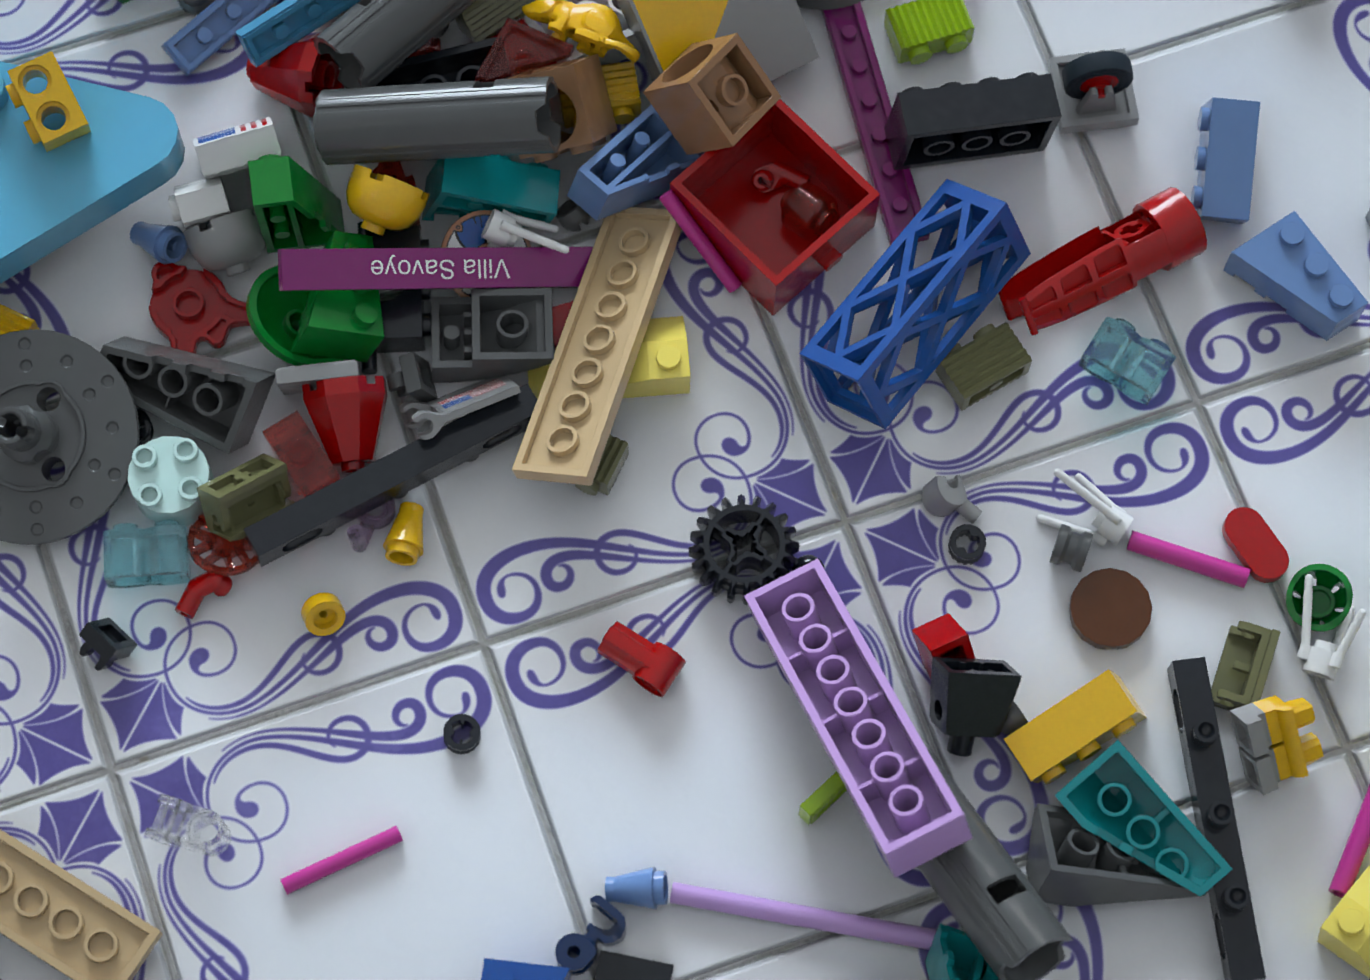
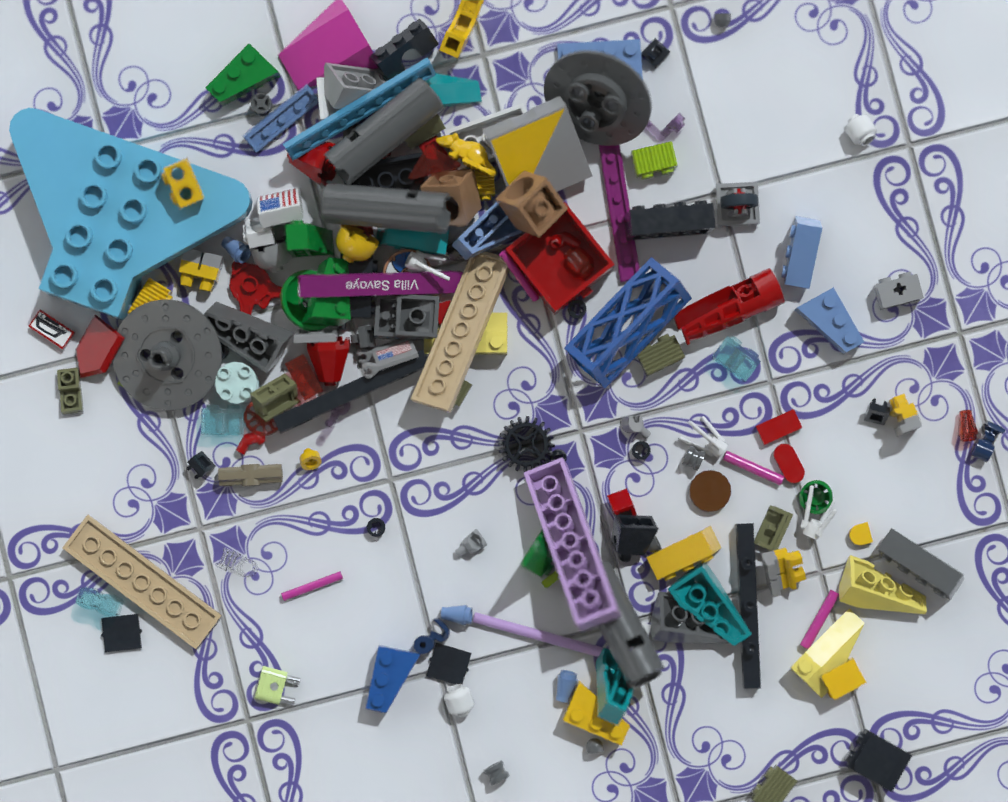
camera: 10 degrees right, 15 degrees up
(93, 278) = (202, 266): none -> yellow hips
(206, 653) = (250, 475): none -> dark tan piece
(405, 537) = (355, 420): yellow cone -> none
(650, 664) = (472, 499): red piece -> none
(655, 747) = (471, 543): none -> light grey piece
(787, 755) = (539, 557): none -> green wedge
(823, 291) = (572, 313): none -> black bush
(1225, 479) = (778, 427): none -> red tile

